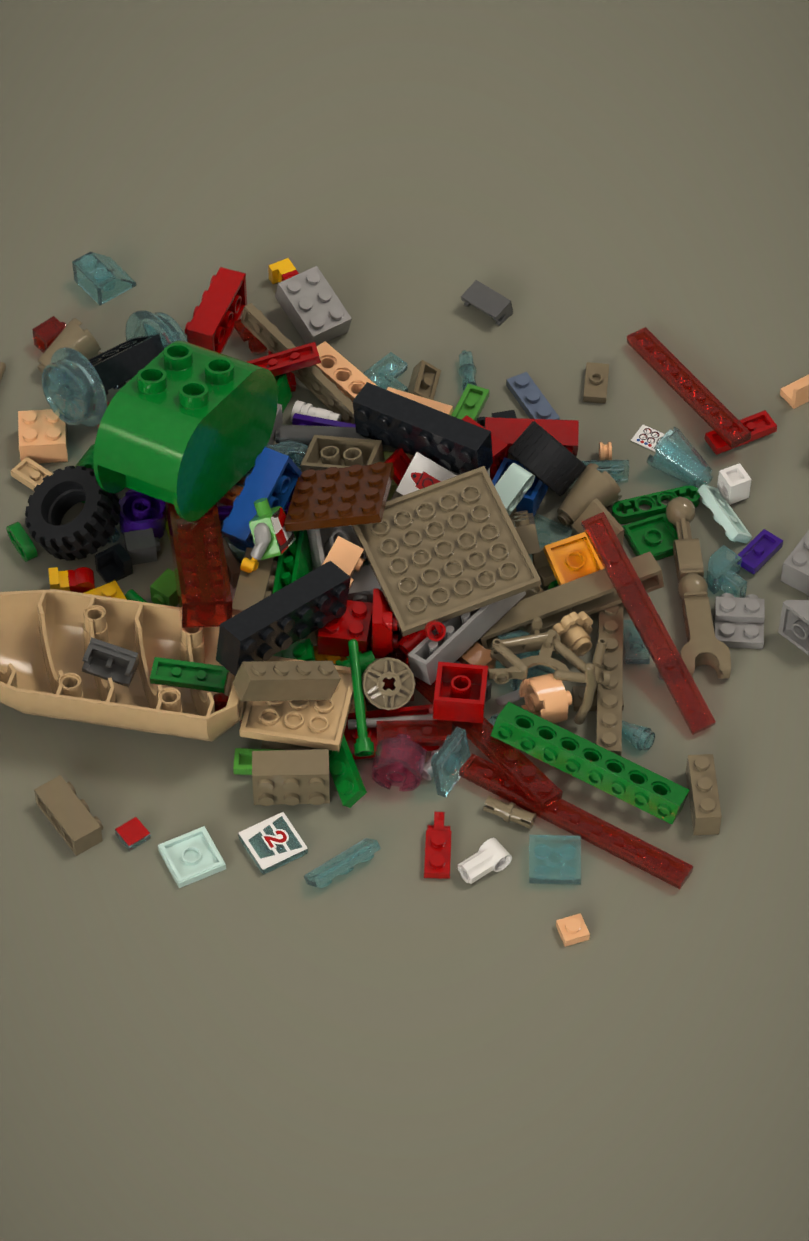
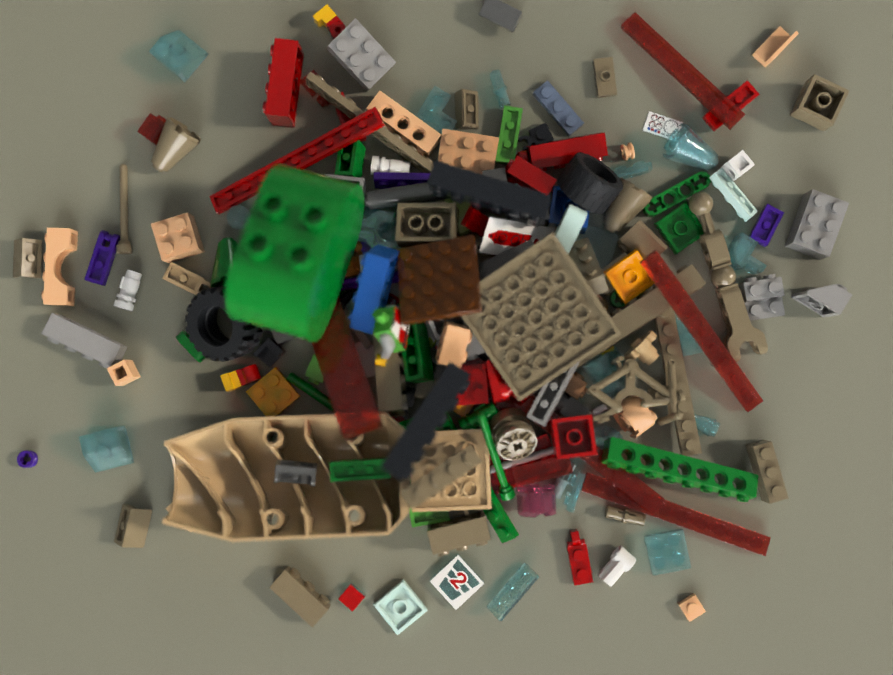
camera: 10 degrees left, 35 degrees up
(79, 385) = (200, 192): clear light blue brick -> none
(439, 627) = (544, 395): red hinge -> none

